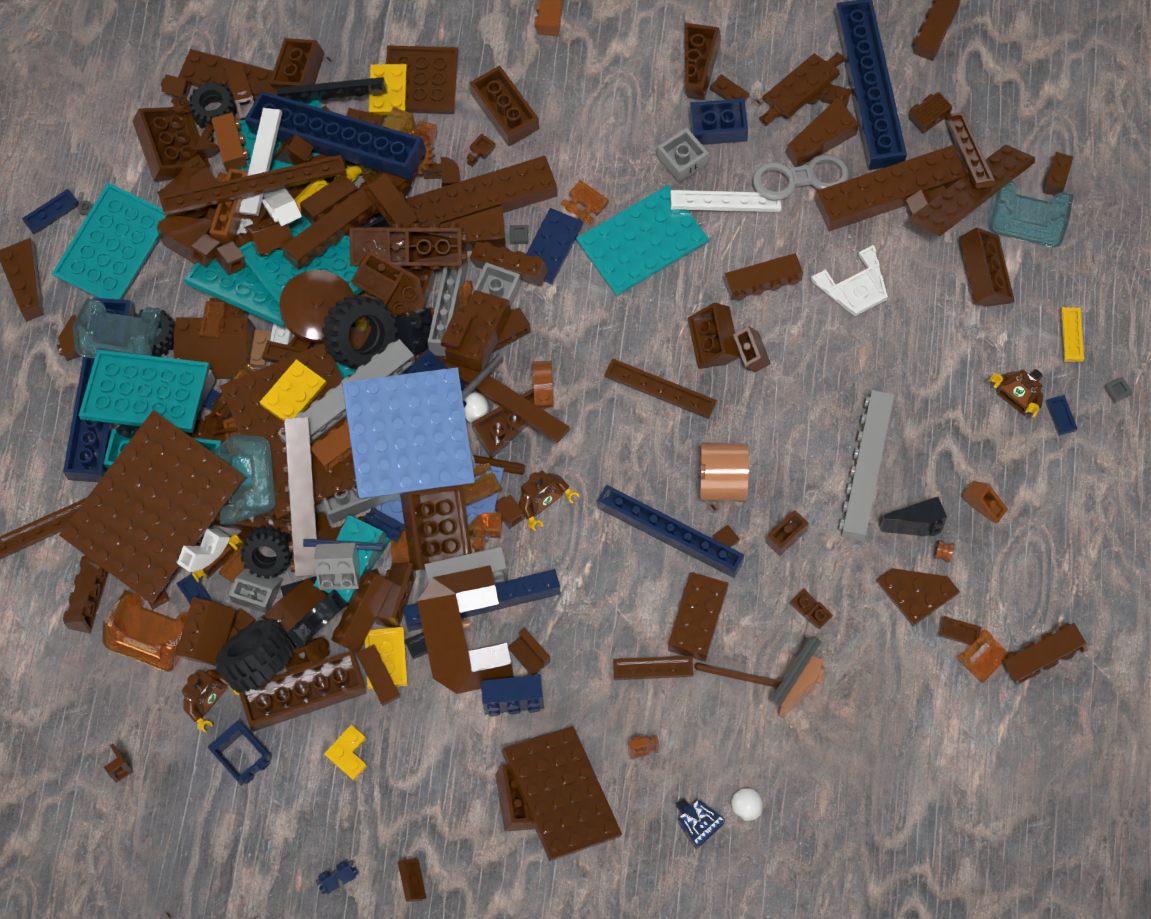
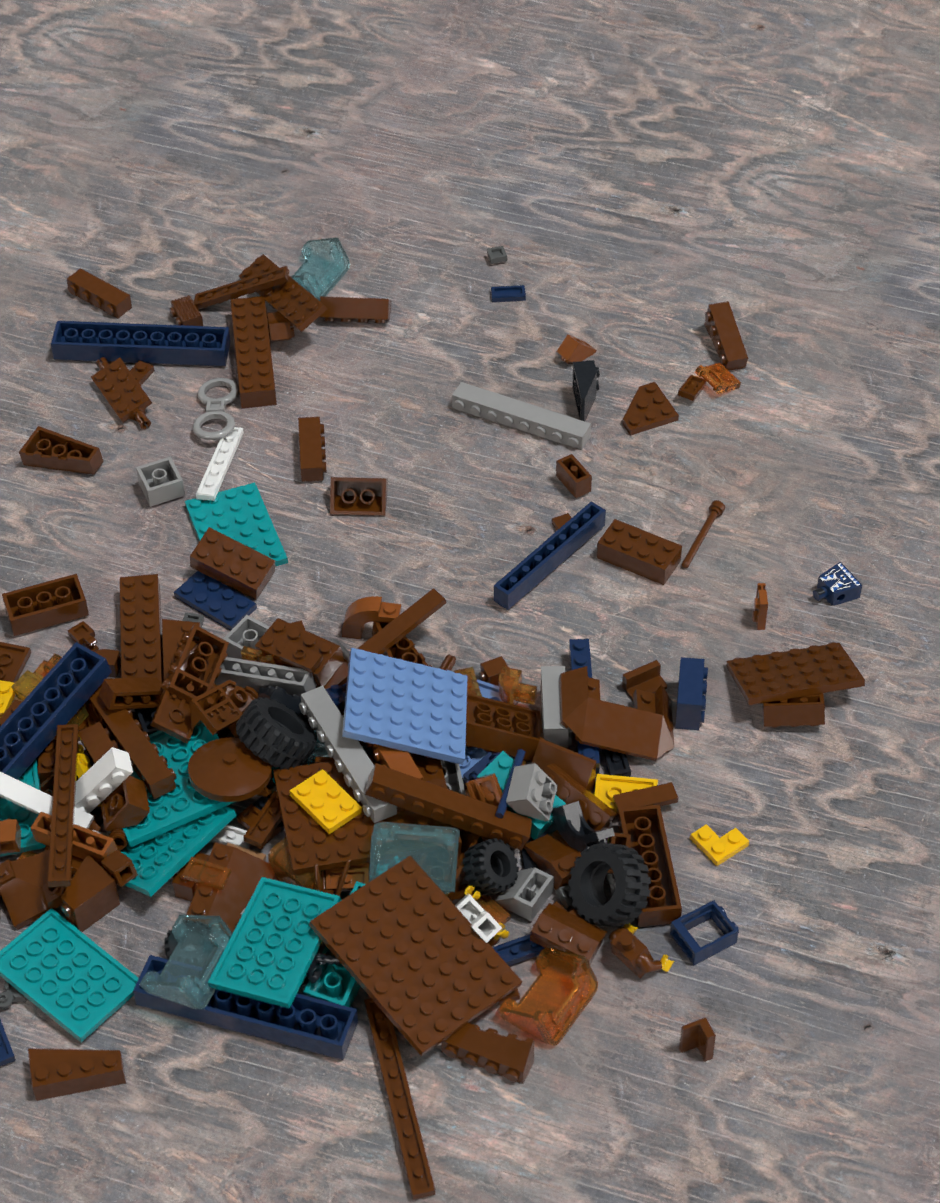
camera: 80 degrees left, 20 degrees down
(66, 341) = (170, 1030): reddish brown slope -> none
(230, 258) = (137, 847): reddish brown brick -> none
(294, 151) = (30, 770): reddish brown slope -> none
(331, 525) = (485, 789): none -> dark orange plate
(342, 871) = (846, 868): dark blue hinge -> none
(412, 880) = (871, 808): reddish brown plate -> none
(530, 268) = (241, 604): reddish brown brick -> none
(540, 493) = (485, 644): reddish brown torso -> none
(585, 246) = (232, 563): none -> reddish brown brick
(589, 198) = (173, 563): clear orange plate -> none
(653, 667) = (680, 594): reddish brown plate -> none
(660, 388) = (398, 542): reddish brown plate -> none
(719, 121) = (134, 447): dark blue brick -> none
(724, 471) = (505, 499): nougat brick -> none
(727, 89) = (106, 441): reddish brown plate -> none
(747, 804) = (823, 551): white hair -> none
(751, 349) = (383, 467): reddish brown brick -> none
(796, 670) = (717, 476): dark grey axle -> none
(804, 685) = (719, 484): nougat slope -> none
(810, 609) = (648, 479): reddish brown slope -> none
(822, 134) = (176, 381): reddish brown wedge -> none
(858, 291) = (346, 389): white wing -> none
(944, 551) = (616, 383): dark orange wheel -> none
(1020, 390) = (482, 308): torso -> none
(1058, 174) = (282, 248): reddish brown brick -> none
(1072, 334) = (436, 271): yellow plate -> none

